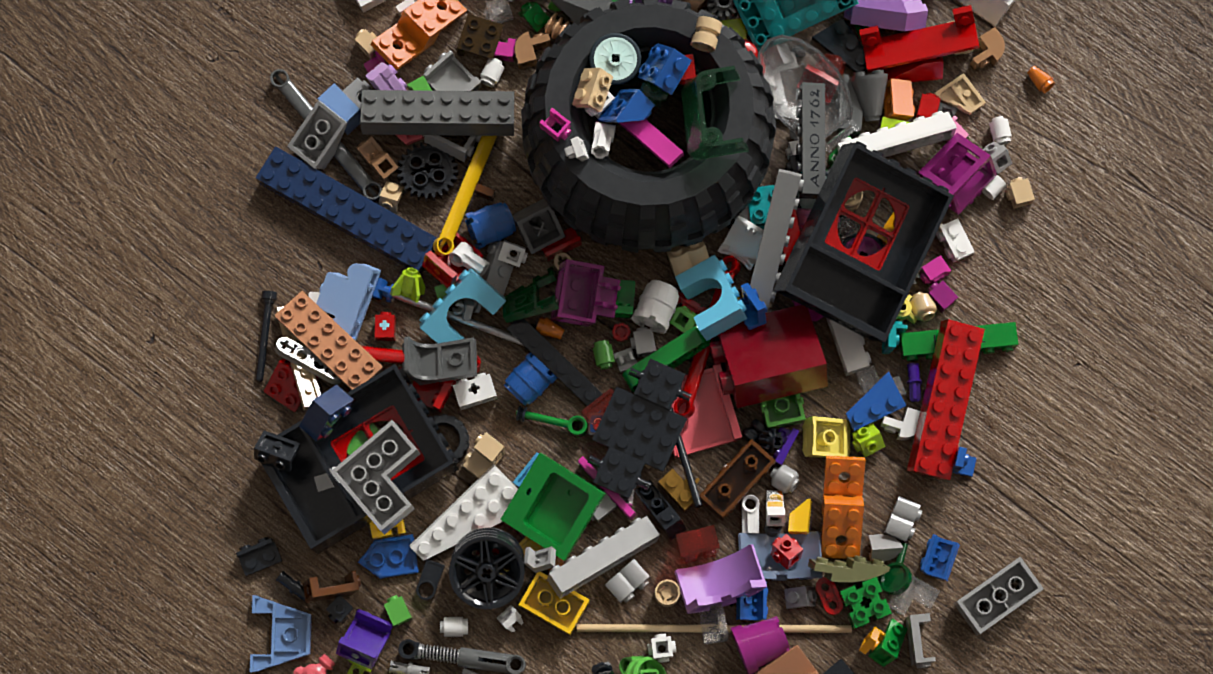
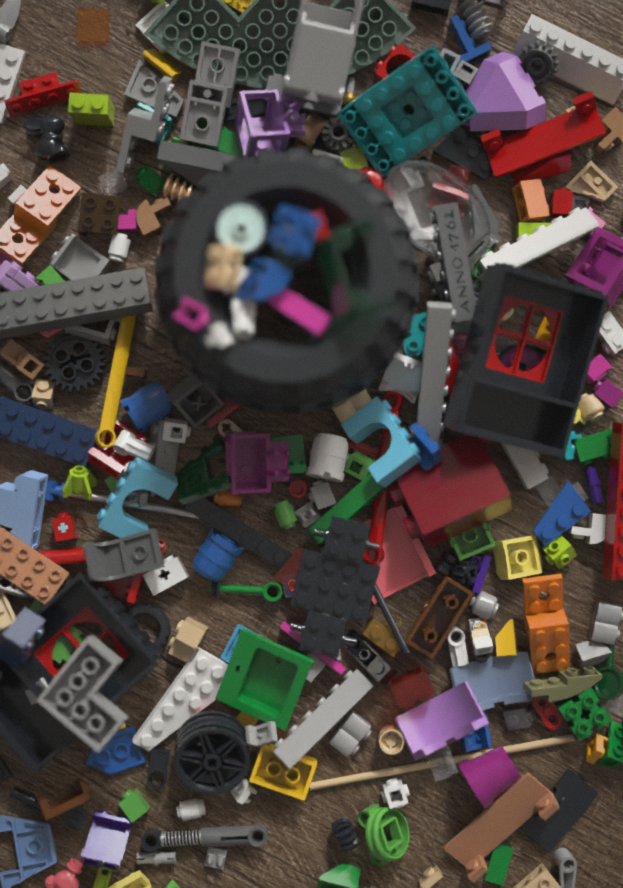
camera: 10 degrees left, 10 degrees up
(706, 34) = (331, 188): tan wheel -> none
(786, 551) = (498, 677): red brick -> none
(870, 92) = (501, 198): dark grey cone -> none

